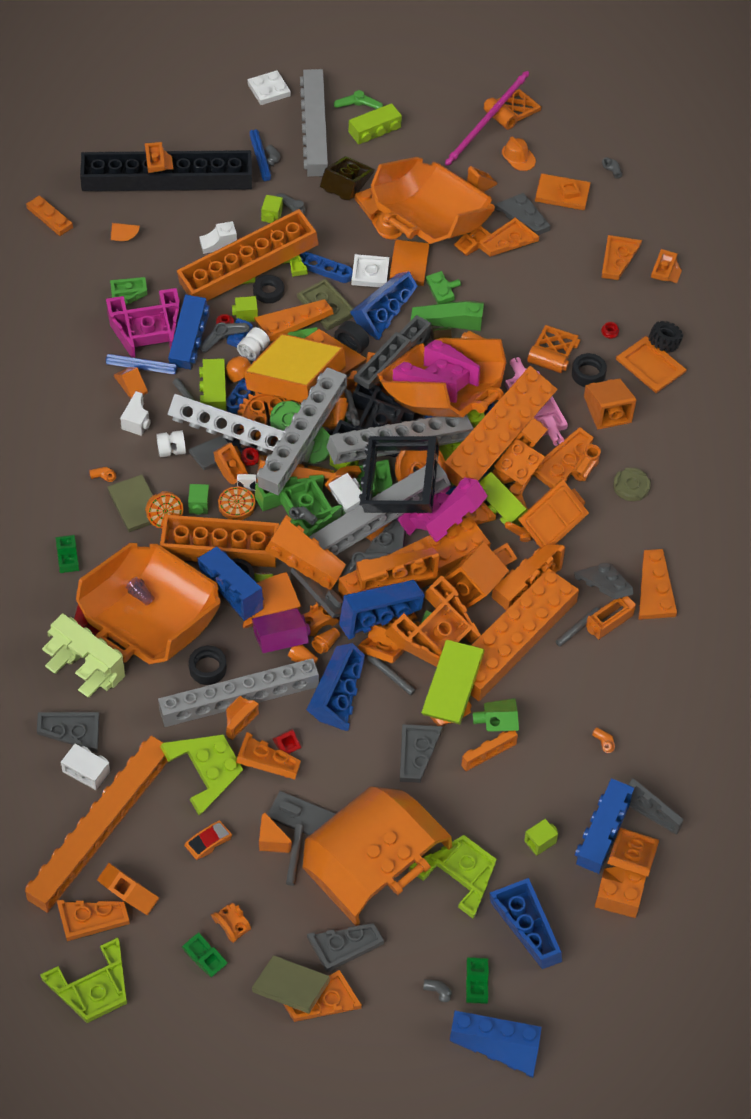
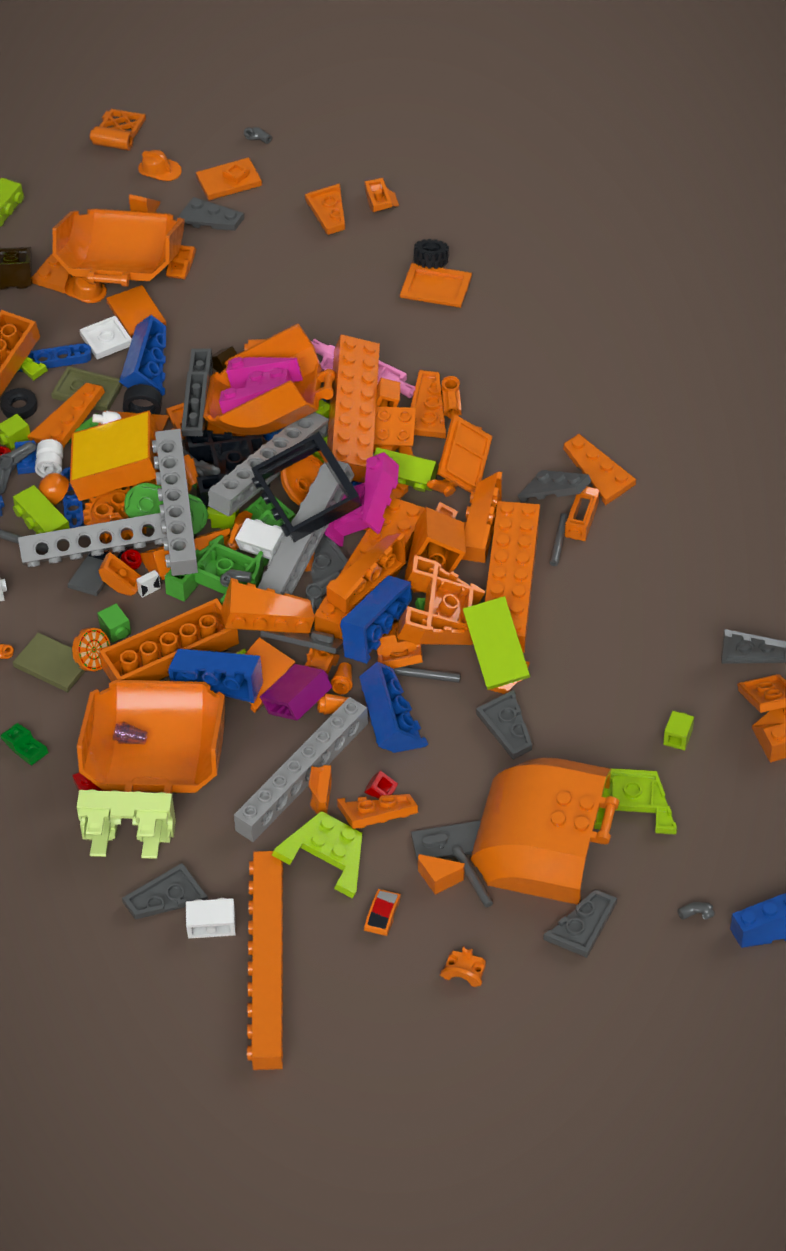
camera: 30 degrees left, 5 degrees down
(85, 919) = (329, 1047): orange wing -> none
(96, 992) = (392, 1105): lime wing -> none
(128, 889) = (343, 997): orange slope -> none
(164, 443) = (44, 589): white wheel -> none
(204, 955) = (463, 1013): green slope -> none
(207, 652) = (249, 777): black tyre -> none
(236, 503) = (152, 608): orange tile -> none
(291, 984) = (567, 984): olive tile -> none
(312, 335) = (106, 417): none -> white cylinder
(335, 999) = (604, 980): orange wing -> none
(441, 287) = (186, 318): bright green plate -> none
(454, 155) = (98, 196): dark pink hose -> none
(457, 314) = (218, 335): bright green wedge -> none
(477, 980) = (723, 883): green slope -> none
(489, 749) = (571, 685): orange plate -> none
(498, 715) = (559, 649): bright green torso -> none
(508, 237) = (213, 242): orange wing -> none
(526, 918) = (729, 804): blue wedge -> none
(549, 356) = (337, 325): orange piece -> none
(591, 360) = (386, 329): black tyre -> none
(604, 826) = (726, 687): blue wedge -> none
(606, 740) = (664, 618): orange arm -> none
(610, 330) = (374, 275): red plate -> none
(610, 403) = (430, 335): orange slope -> none
(631, 484) = (504, 395): olive tile -> none

